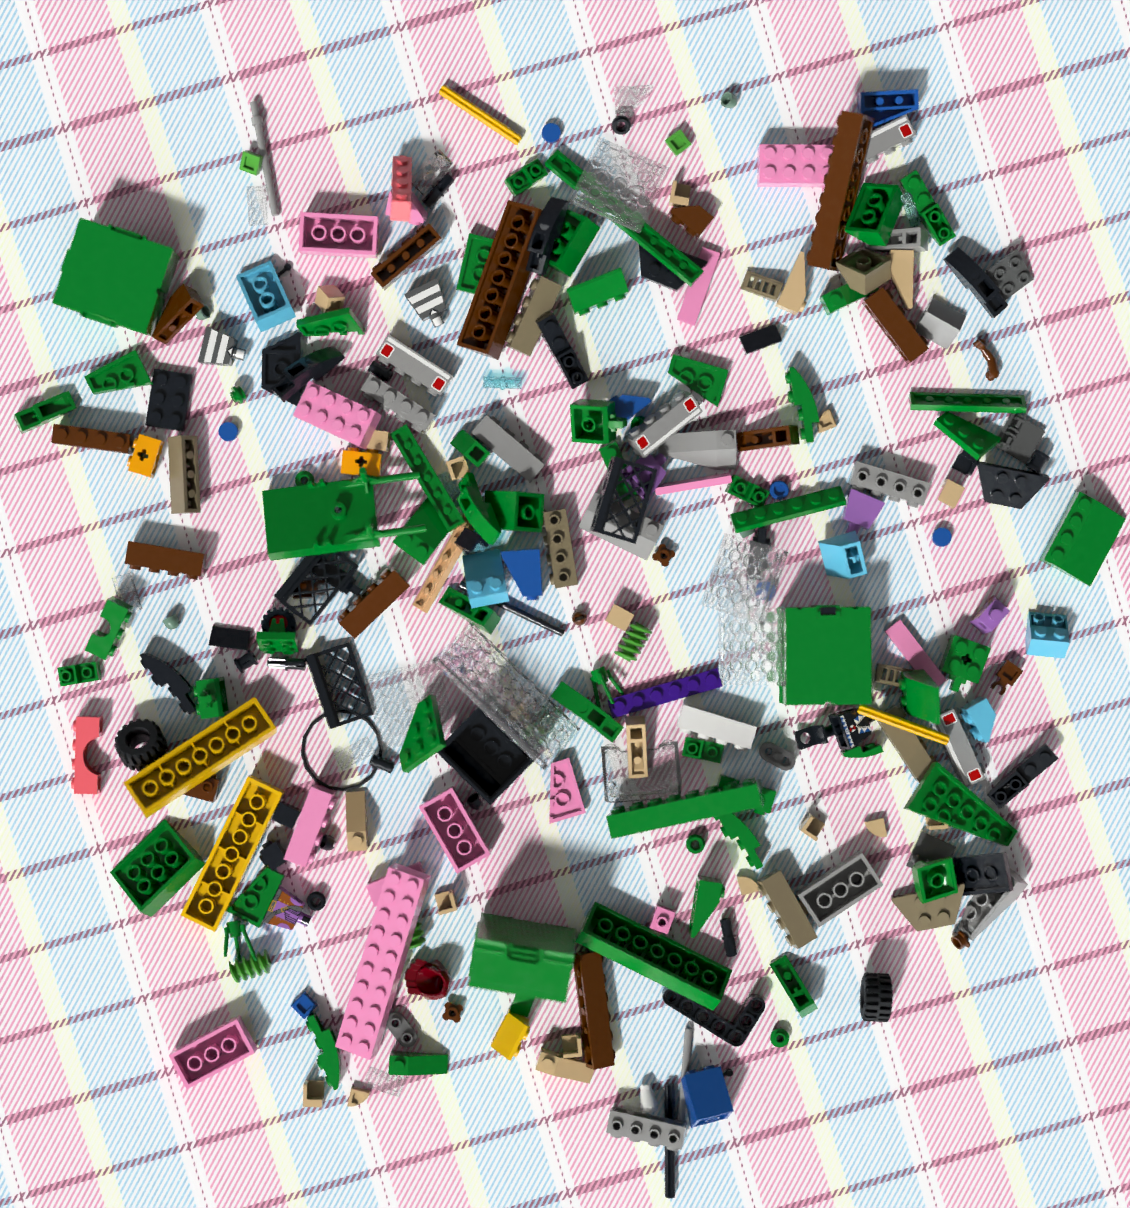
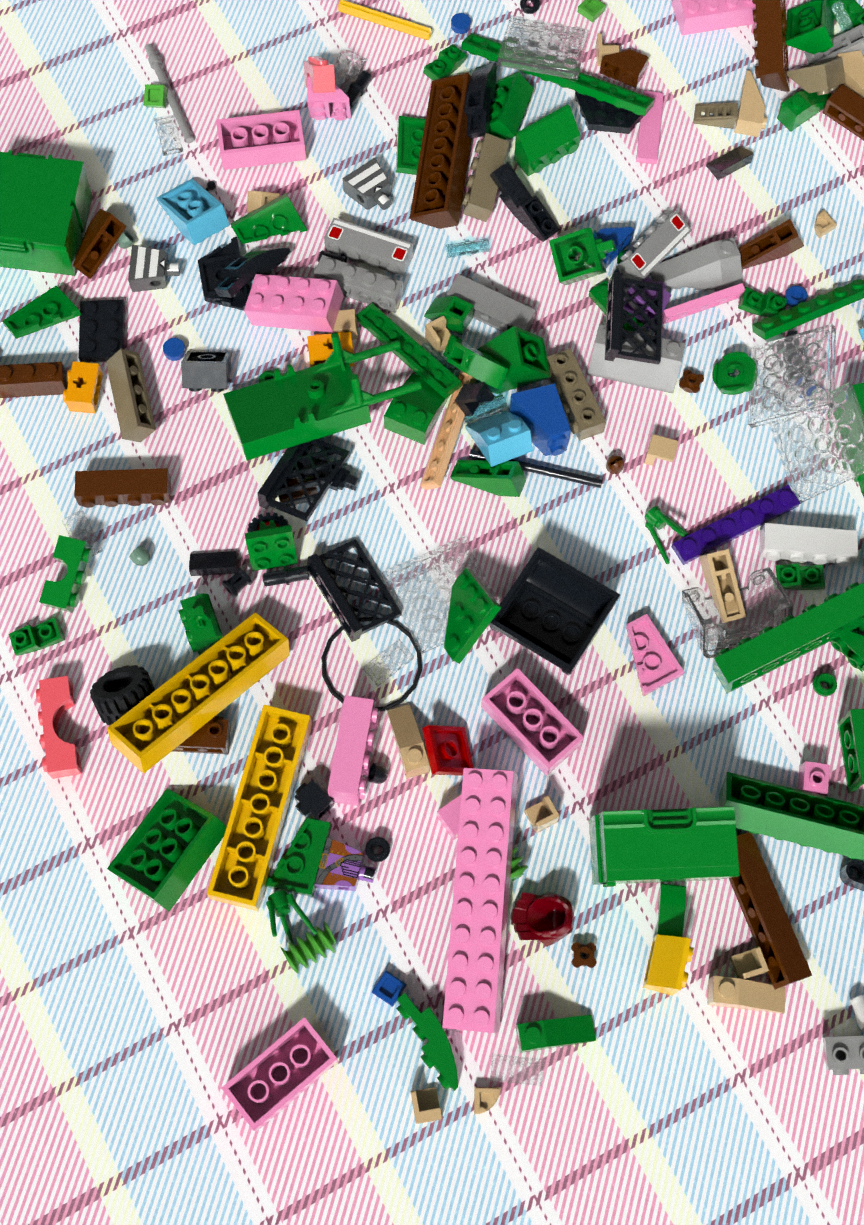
camera: 10 degrees left, 20 degrees down
(166, 674) = (146, 617): black slope -> none
(237, 394) = (178, 309): green plate -> none
(252, 459) = (206, 370): none -> slope
(286, 814) = (319, 747): black panel -> none
(373, 602) = (375, 487): reddish brown brick -> none
(381, 763) = (424, 666): black pin -> none
(384, 839) = (447, 749): none -> red plate
(404, 1028) = (522, 994): flat silver plate -> none
(406, 257) = (337, 147): reddish brown brick -> none
(475, 801) = (548, 687): black hinge -> none
(506, 695) = (557, 547): clear plate -> none
(587, 711) = (655, 555): green slope -> none
(633, 642) = (684, 474): bright green piece -> none
(699, 377) = (688, 203): green wing -> none
(711, 554) = (743, 381): none -> green plate
(801, 396) = (794, 204): green slope -> none

